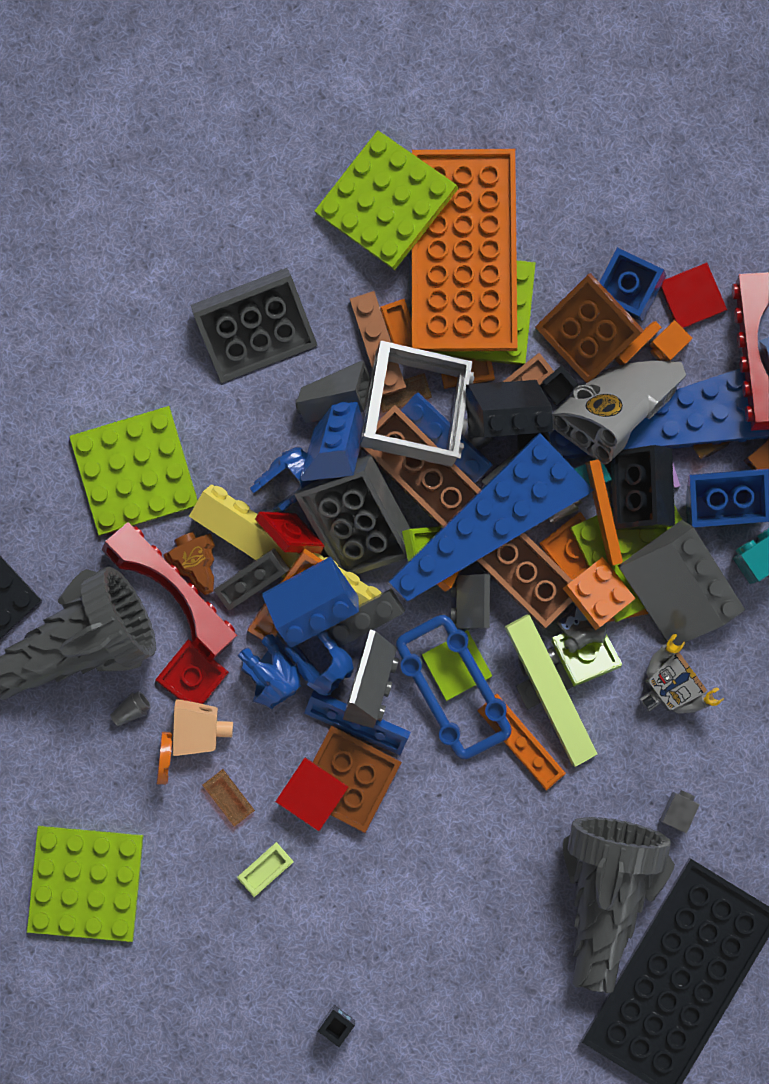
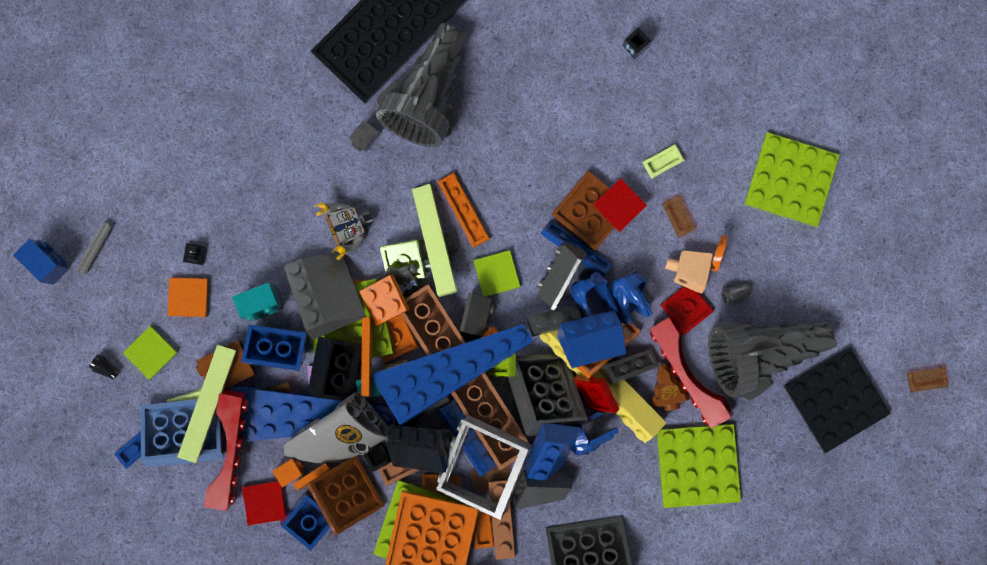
camera: 165 degrees left, 0 degrees up
(456, 642) = (493, 288): blue bar -> none

